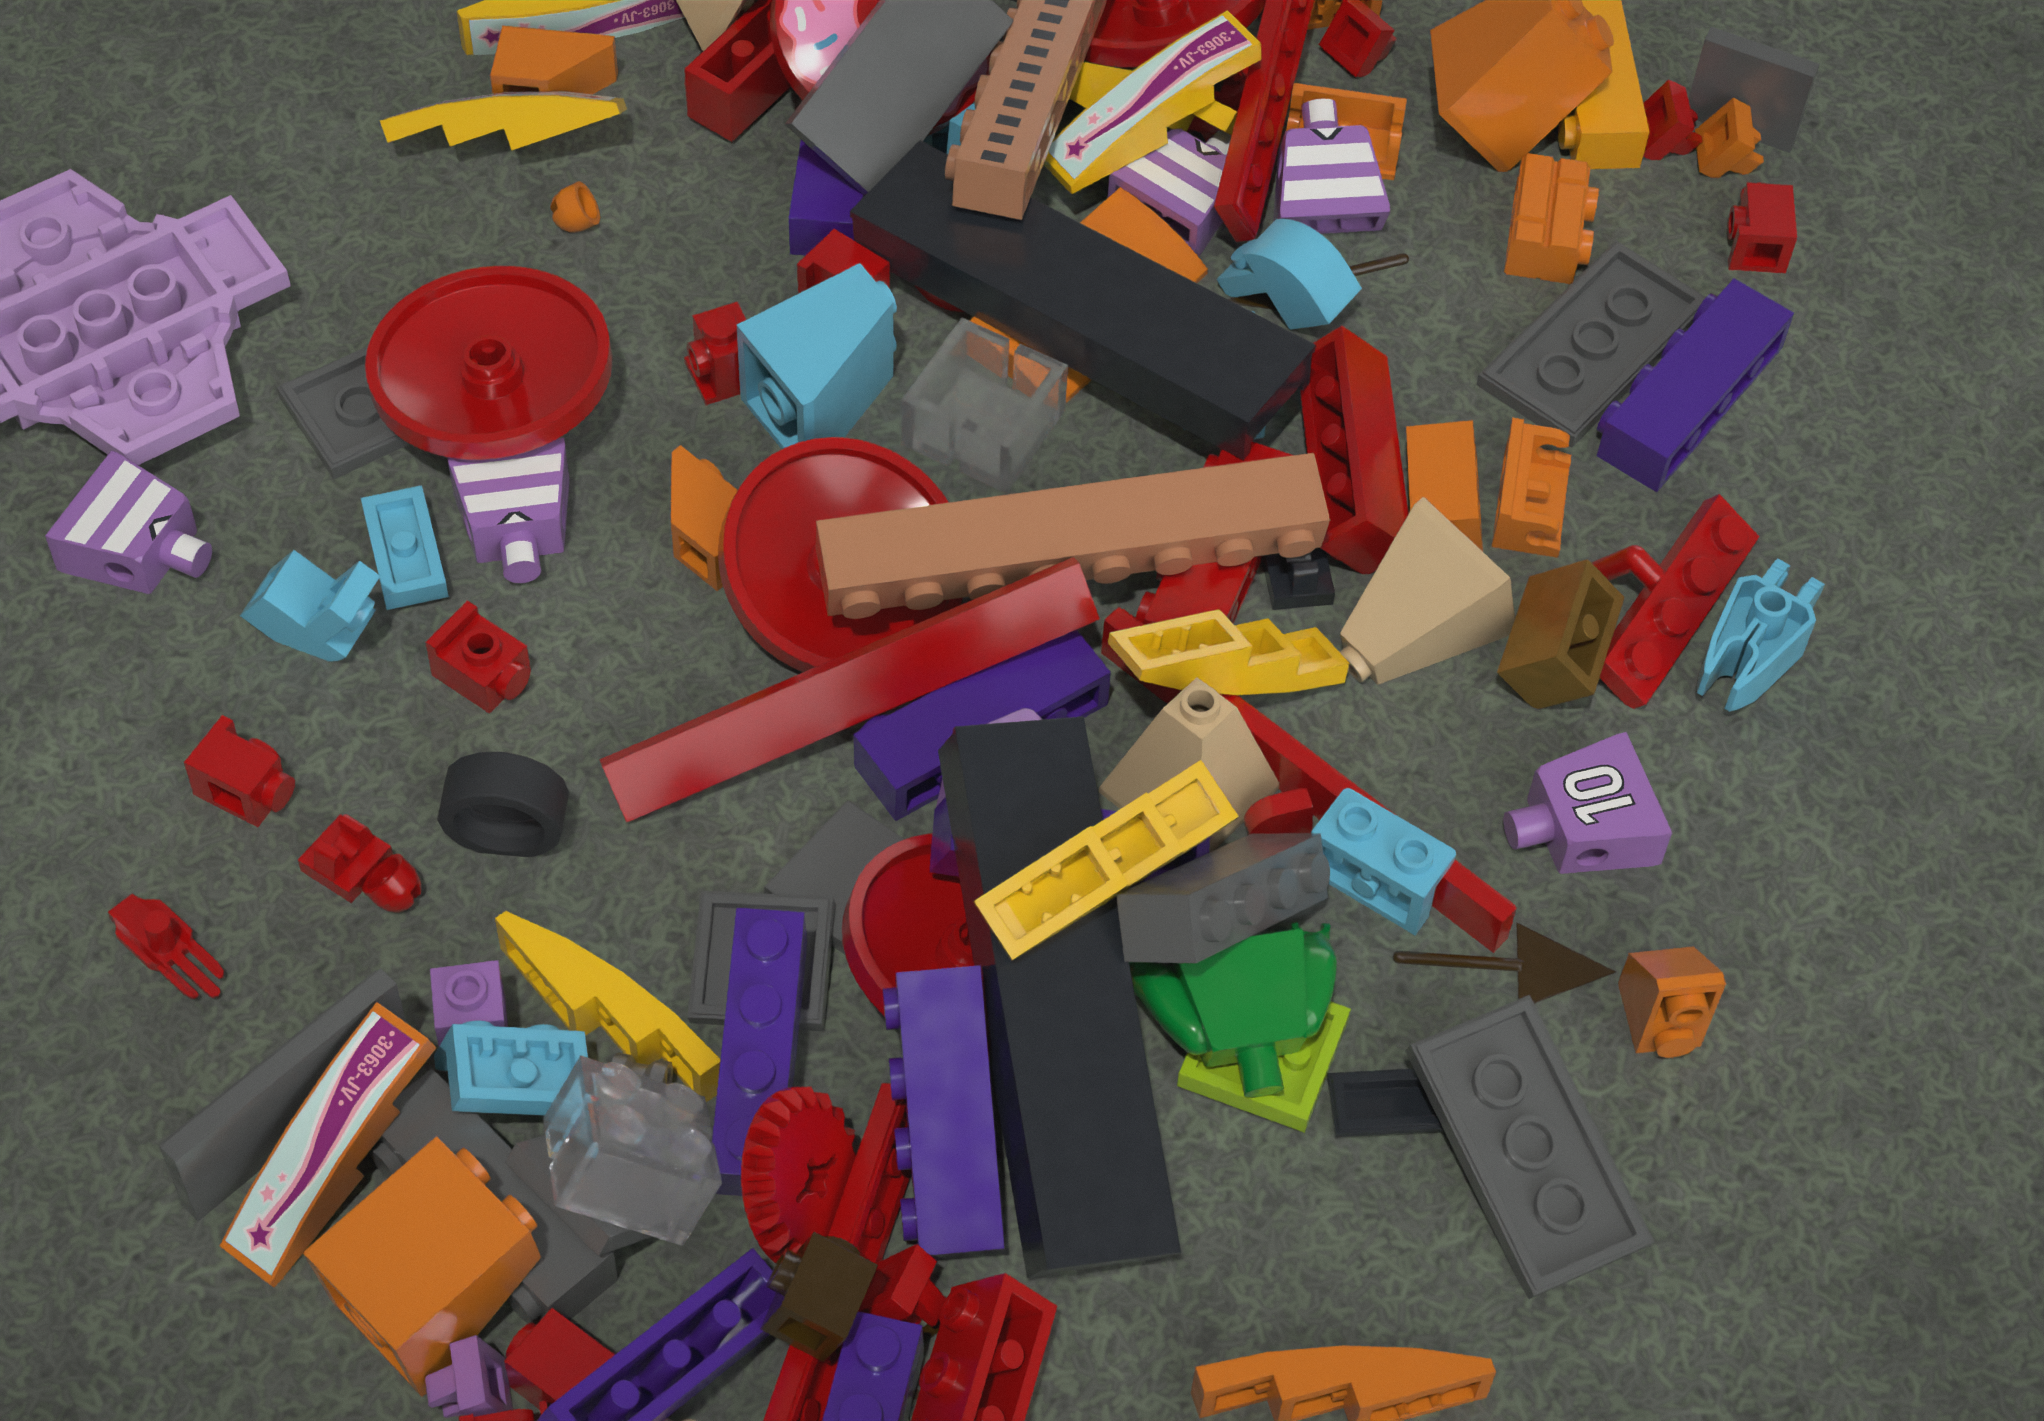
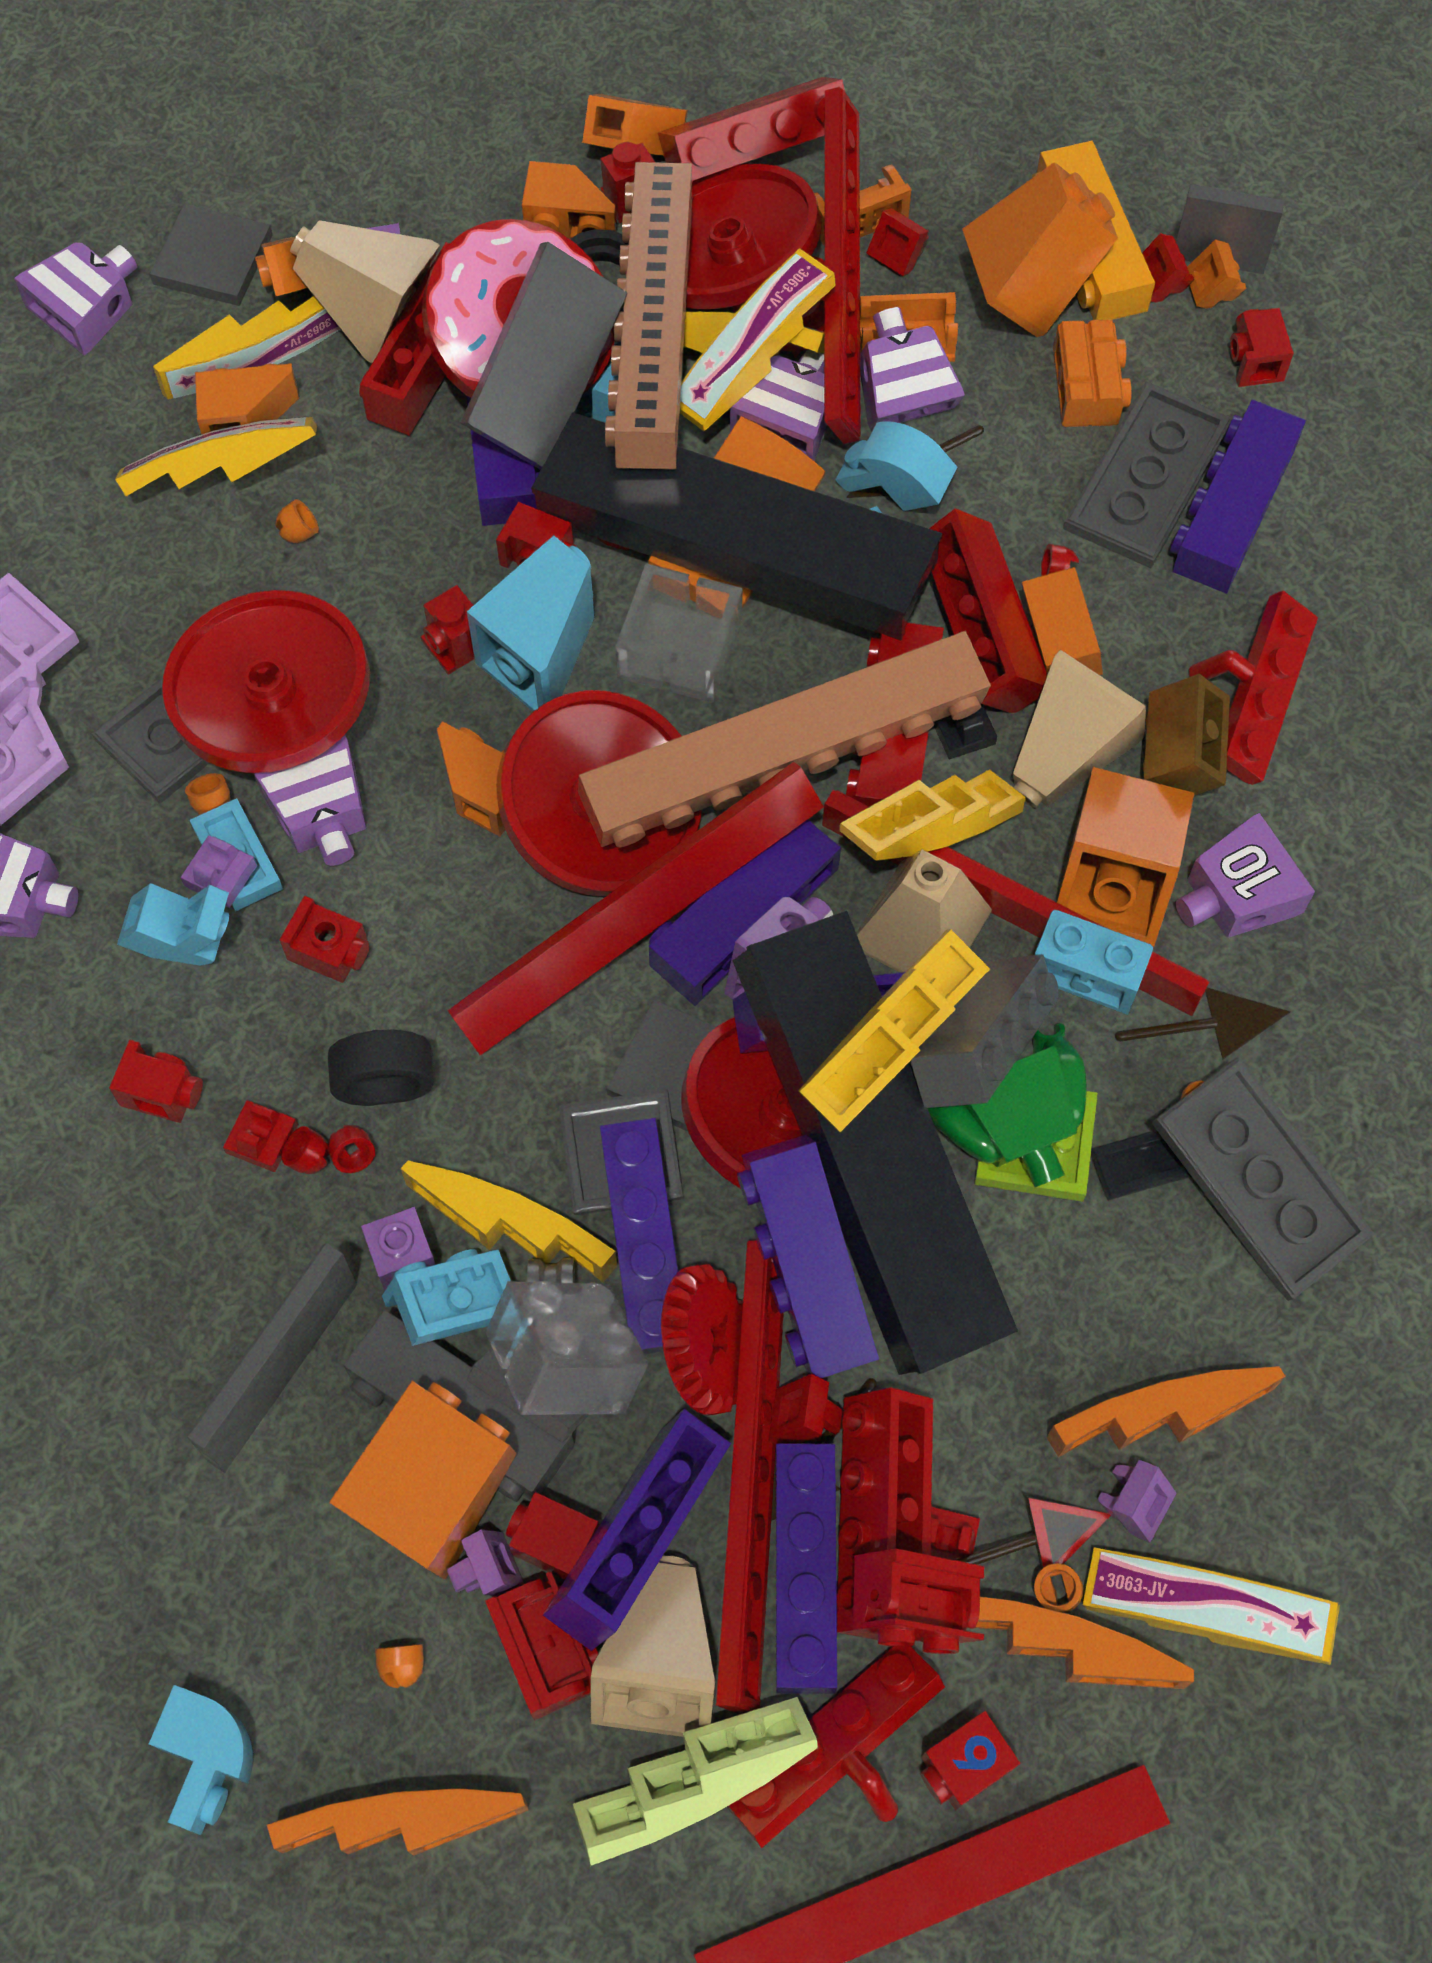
camera: 10 degrees left, 10 degrees up
(162, 941) = (130, 1240): red piece -> none
(324, 1143) = (316, 1394): slope -> none
(384, 550) = (220, 866): none -> medium lavender tile
(390, 474) = (207, 792): none -> orange hinge
(432, 899) = (358, 1159): none -> red hinge
(817, 1294) = (748, 1439): dark brown brick -> none
(1281, 813) = (1003, 940): red tile -> none
(1454, 747) = (1126, 853): none -> orange slope
(1461, 409) = (1057, 559): none -> red hinge
(1532, 490) = (1130, 614): orange hinge -> none
(1669, 999) = (1344, 1030): orange slope -> none
(1759, 634) = (1339, 697): medium azure hinge -> none

